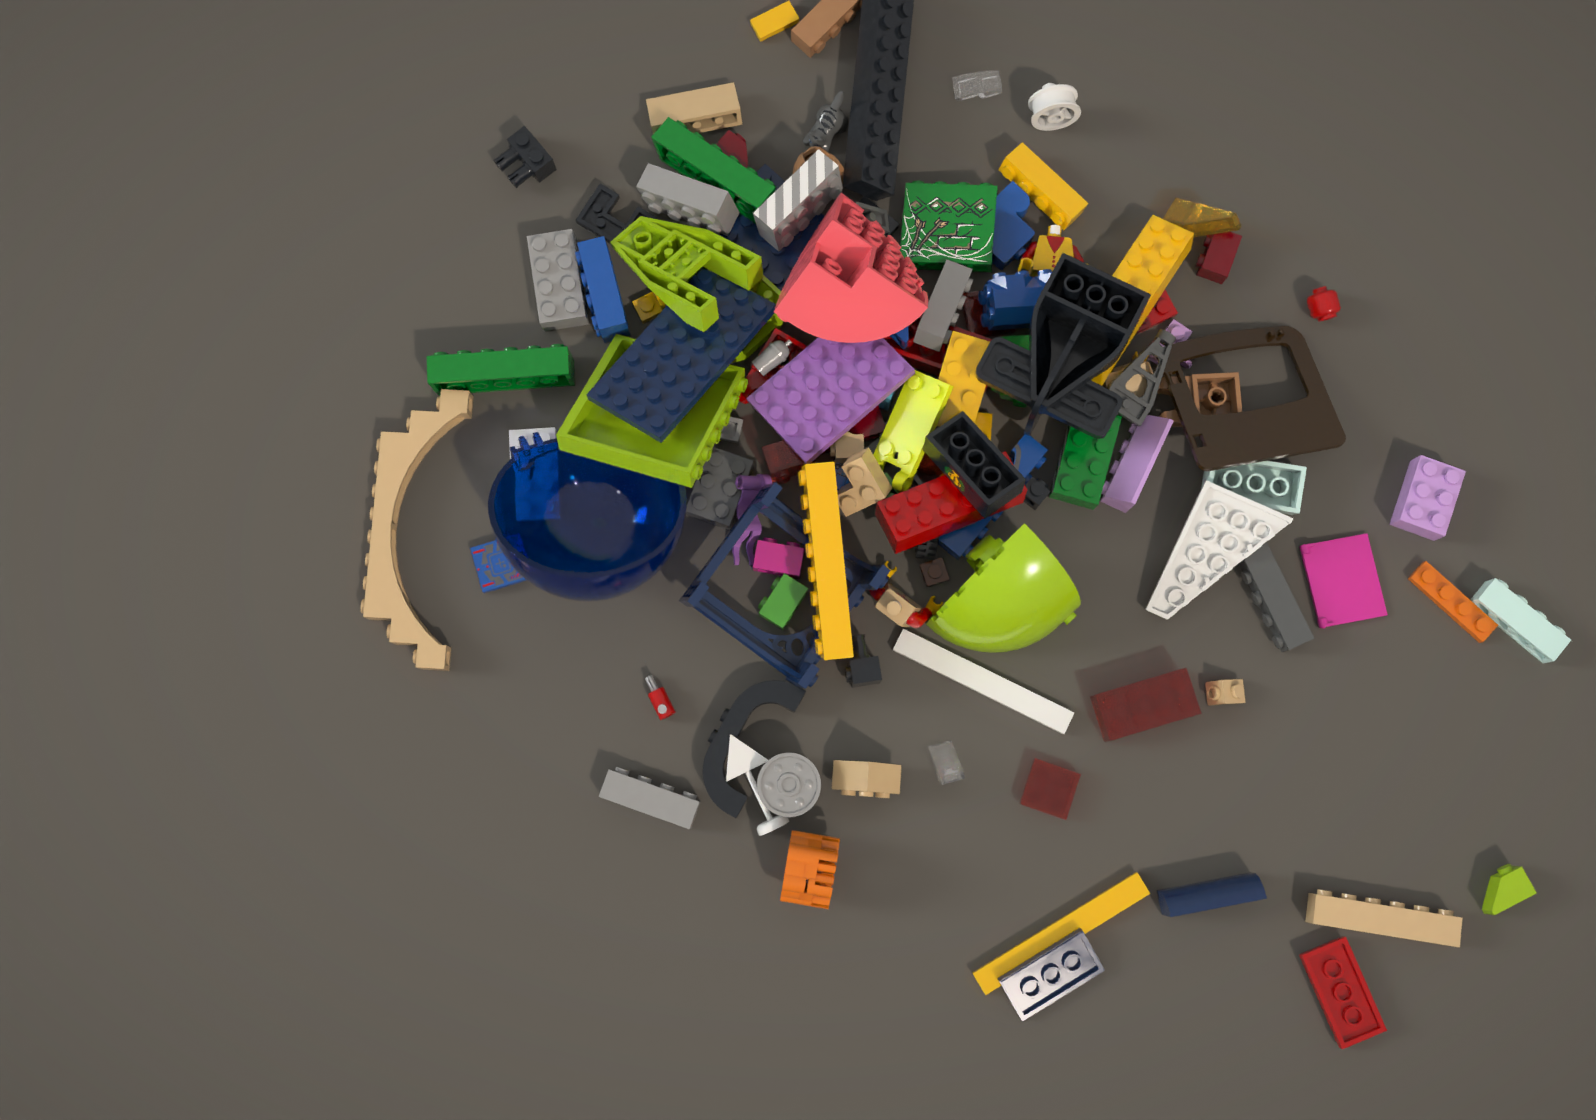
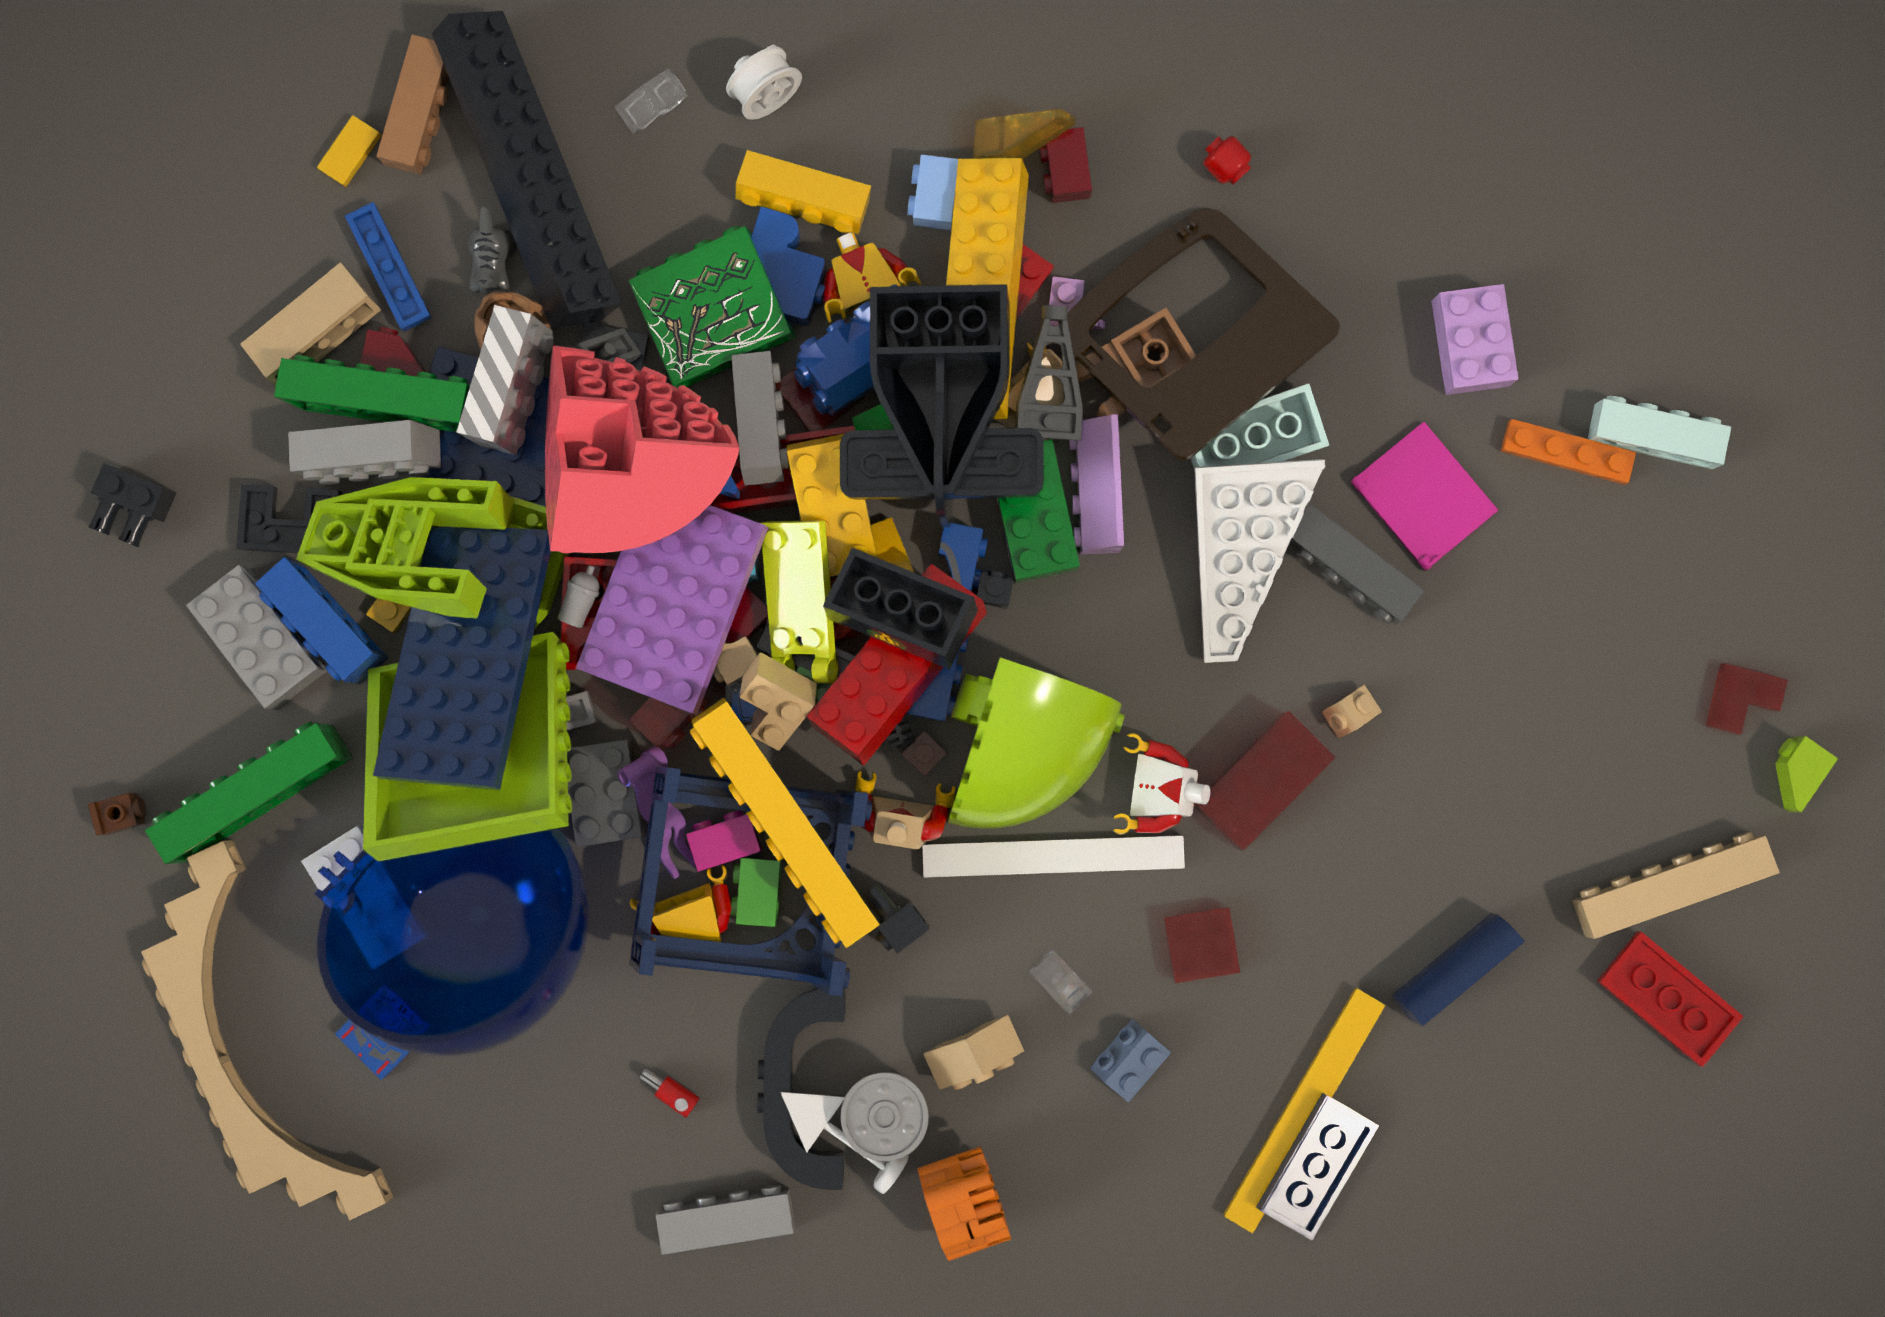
camera: 30 degrees left, 5 degrees up
(419, 348) = (105, 818): none -> reddish brown brick
(737, 592) = (694, 913): none -> yellow torso
(761, 100) = (388, 266): none -> blue plate
(964, 838) = (1130, 1060): none -> sand blue bracket
(1077, 674) = (1162, 788): none -> torso
(1126, 229) = (934, 192): none -> light blue brick
(1488, 815) = (1738, 689): none -> clear red plate

